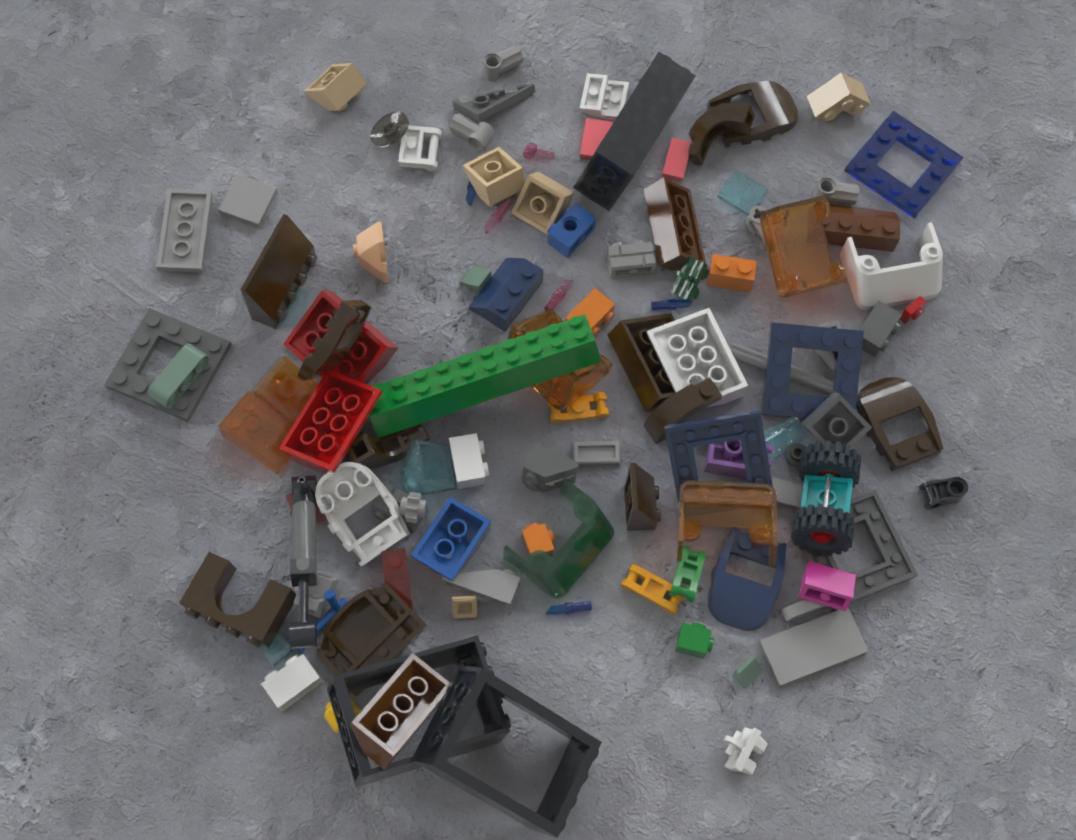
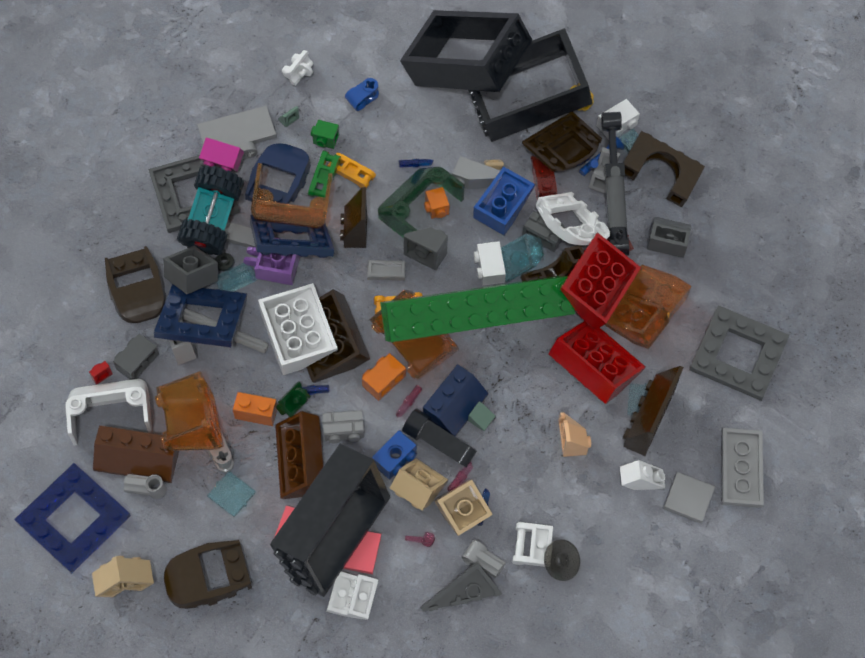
camera: 175 degrees left, 5 degrees down
(178, 376) = (728, 329): sand green beam -> none
(236, 506) = (669, 237): none -> dark grey slope
(302, 211) = (642, 476): none -> white slope
(336, 86) = (617, 610): tan slope -> none
(336, 345) = (602, 330): dark brown slope -> none
(398, 710) = (538, 63): reddish brown slope -> none
(413, 507) = (533, 215): light grey gear -> none
(495, 64) = (450, 636): light grey piece -> none
(521, 244) = (420, 426): none -> black beam
(651, 706) = (362, 95): none -> blue piece
(681, 407) = (313, 281): dark brown arch -> none
(715, 122) = (242, 553): dark brown arch -> none
(938, 492) = (113, 227): black piece -> none

